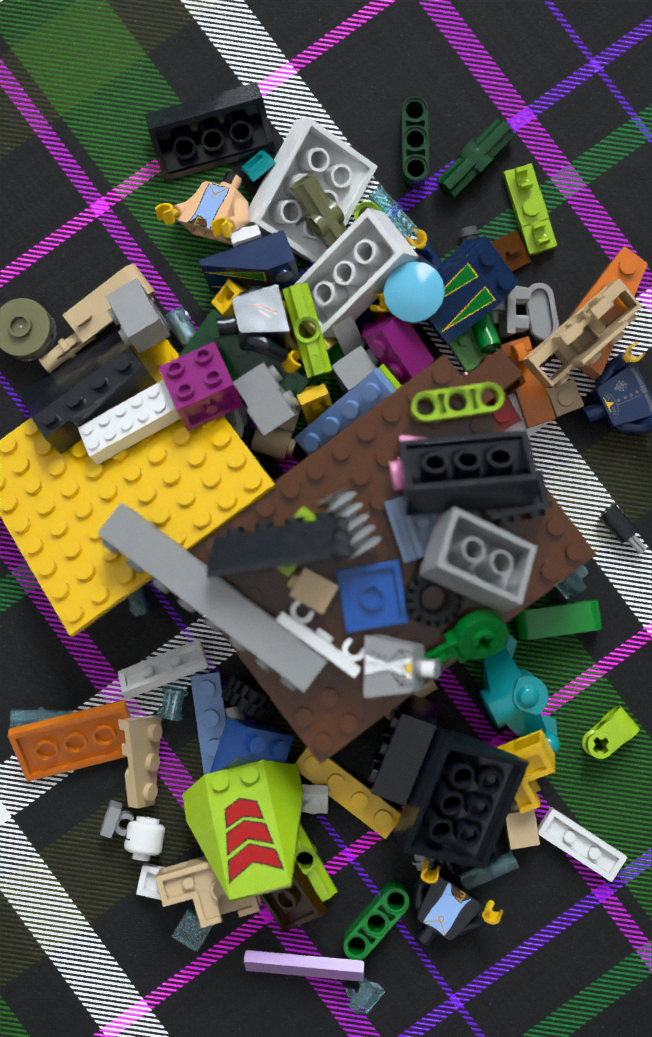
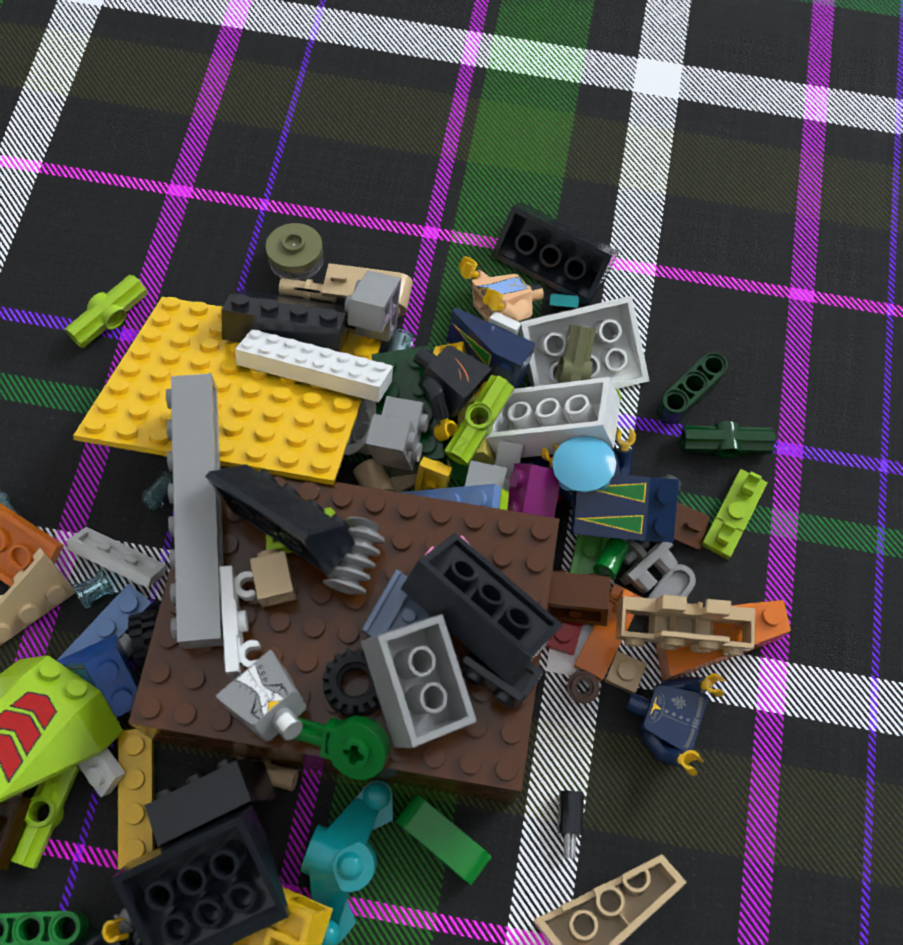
camera: 45 degrees right, 20 degrees down
(200, 386) = (359, 377): magenta bracket -> none
(372, 596) = (311, 633): blue tile -> none
(393, 211) = (628, 414): clear light blue axle -> none
(470, 396) = (524, 539): lime beam -> none
(555, 440) = (593, 687): none -> reddish brown plate
(573, 584) = (485, 816): clear light blue tile -> none

